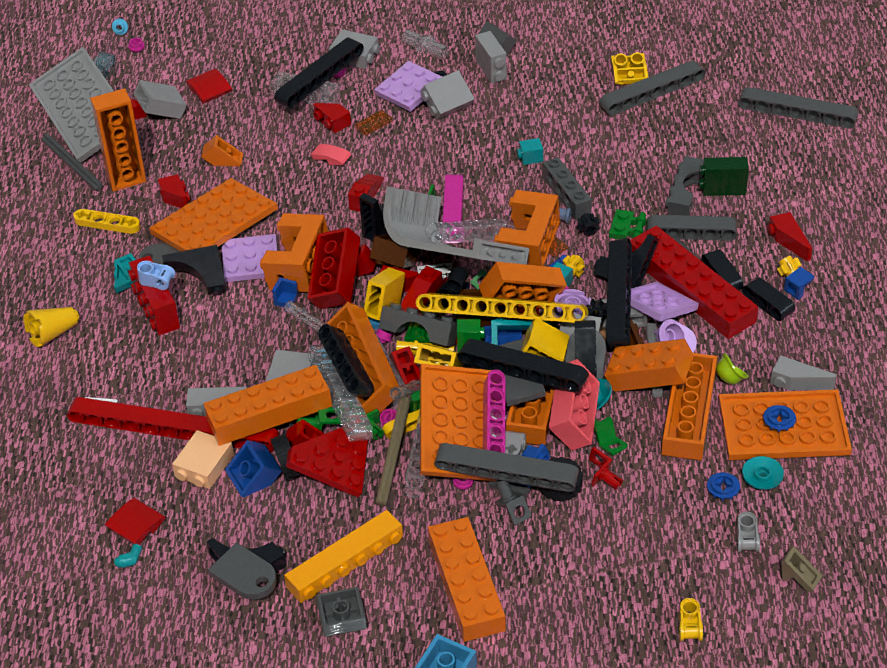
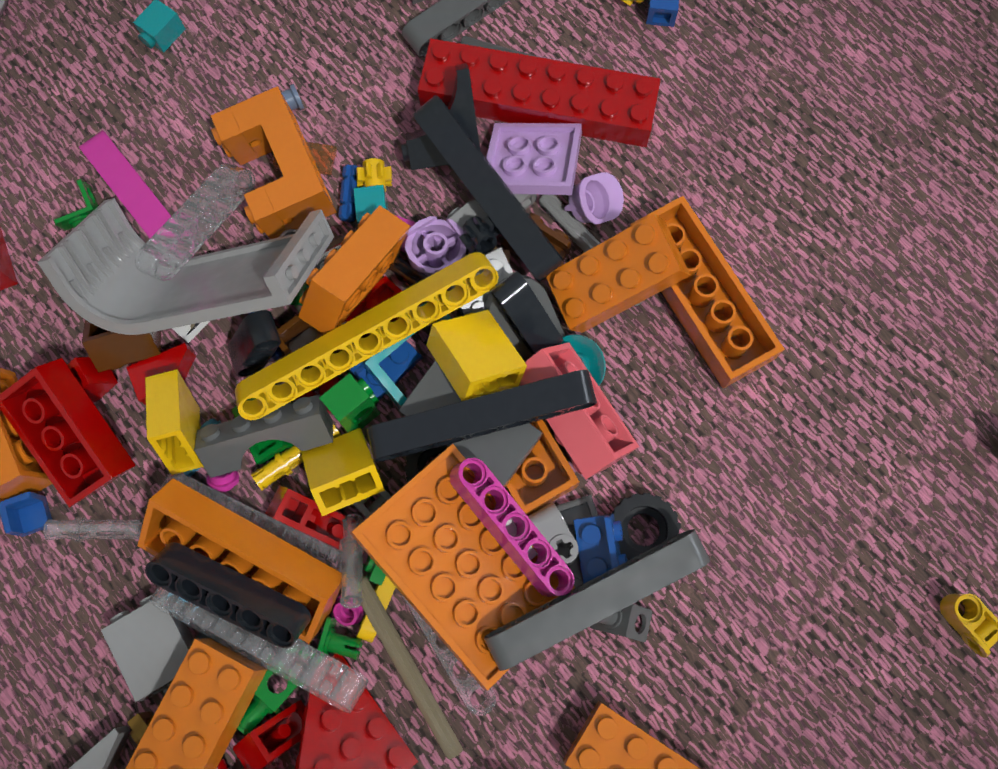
camera: 40 degrees left, 30 degrees up
(371, 217) = (41, 299): black arch -> none
(424, 283) = (213, 369): red slope -> none
(566, 187) = (258, 54): dark grey brick -> none
(588, 224) = (335, 93): black gear -> none
(604, 473) = (686, 476): red bracket -> none
(606, 436) = (640, 415): green bracket -> none
(622, 224) = (373, 61): green plate -> none
(722, 266) = (556, 44): black beam -> none
(728, 372) = (705, 199): lime helmet -> none
(731, 483) = (833, 366): blue gear -> none
(747, 536) = (929, 437): light grey piece -> none
(762, 466) = (874, 317): teal dish -> none
(769, 299) = (648, 52): black beam -> none
(786, 414) = (823, 219): blue gear -> none
(800, 376) = (773, 148): light grey slope -> none
(817, 431) = (822, 232): orange plate -> none

